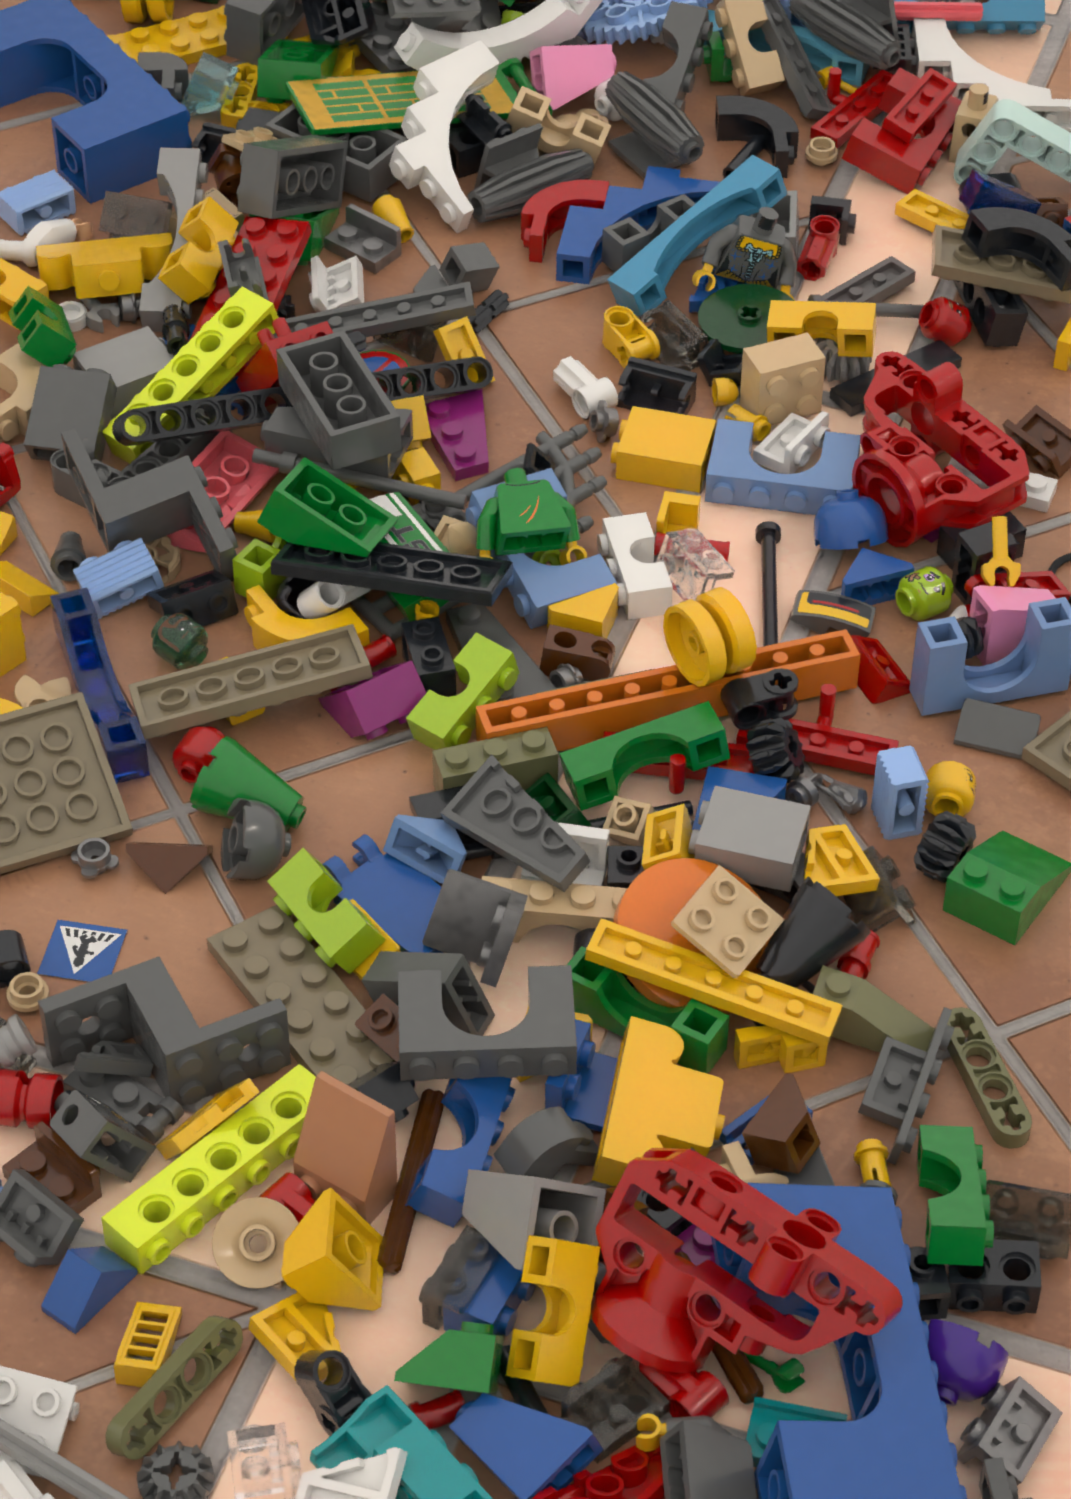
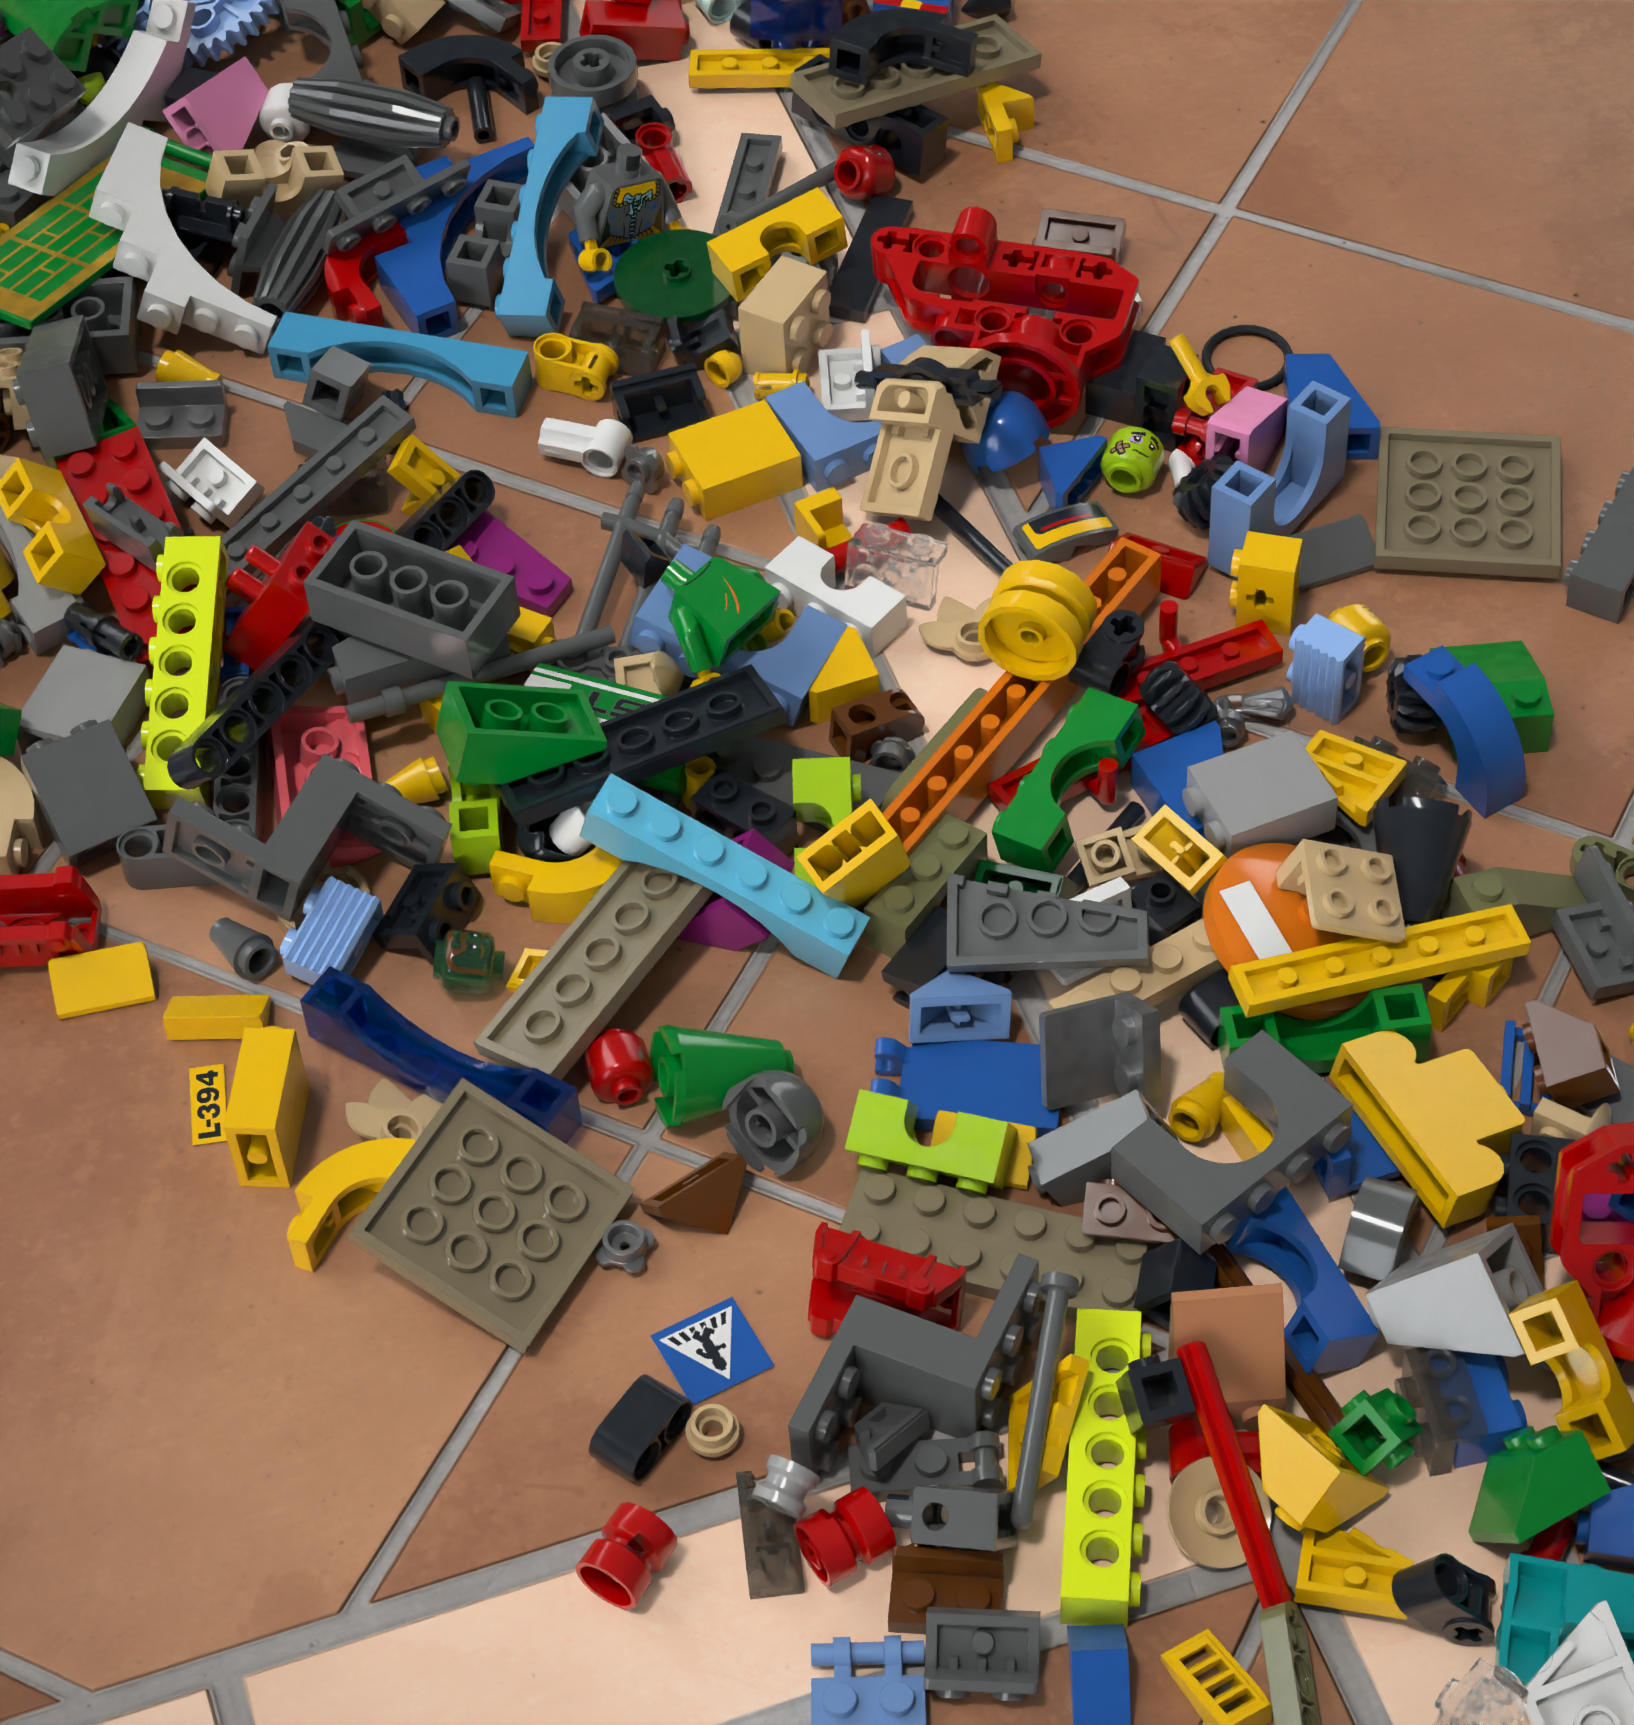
camera: 35 degrees left, 5 degrees up
(201, 969) = (855, 1266): none -> red piece
(270, 1135) = (1154, 1393): none -> black brick
(275, 1218) = (1233, 1475): none -> red axle
(283, 1037) = (1058, 1288): none -> dark grey bar
(377, 700) = (655, 834): none -> medium azure arch
(394, 1259) = (1376, 1430): none -> green brick
(443, 709) = (856, 856): none -> yellow torso
(510, 1006) = (1198, 1111): none -> yellow cone
(569, 315) = (483, 375): none -> dark azure arch
(608, 171) = (387, 194): none -> dark grey bracket
(654, 904) = (1255, 920): none -> white sticker
(795, 467) = (922, 408): none -> tan piece
(827, 170) = (597, 69): none -> dark grey wheel
(921, 715) = (1266, 581): none -> yellow brick
(948, 887) = (1480, 725): none -> blue arch

